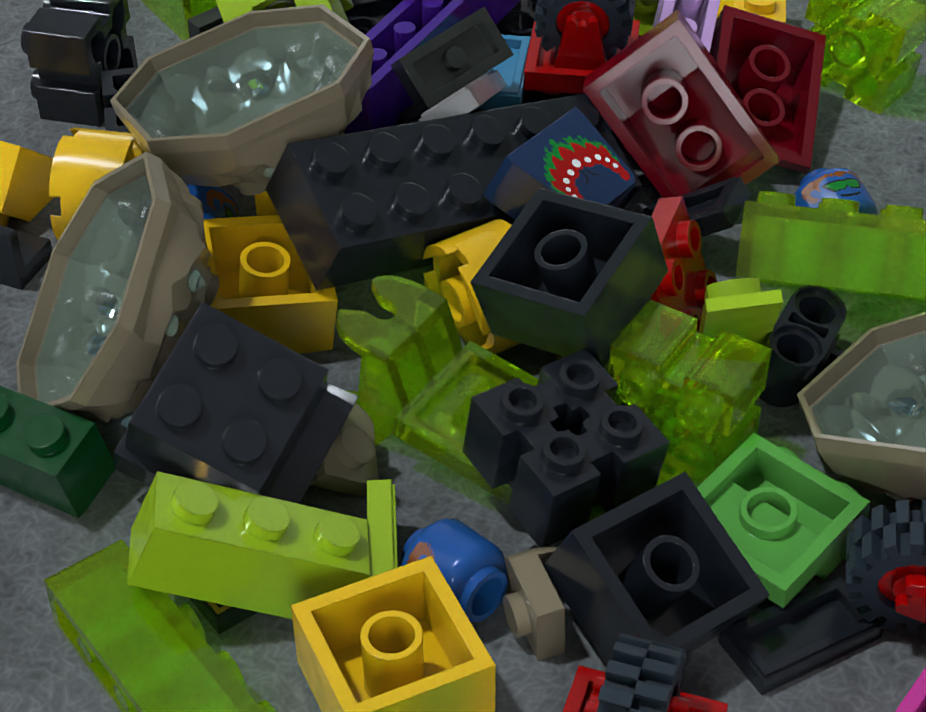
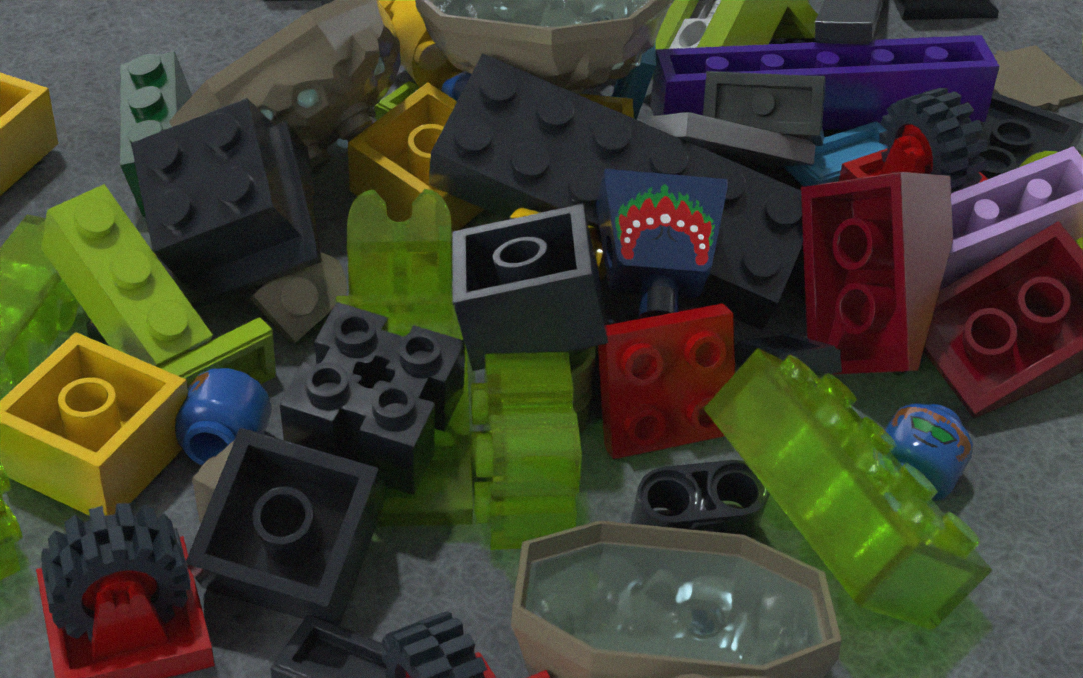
camera: 50 degrees right, 0 degrees up
(740, 309) = (634, 417): lime piece -> none
(782, 515) = (441, 564): bright green plate -> none

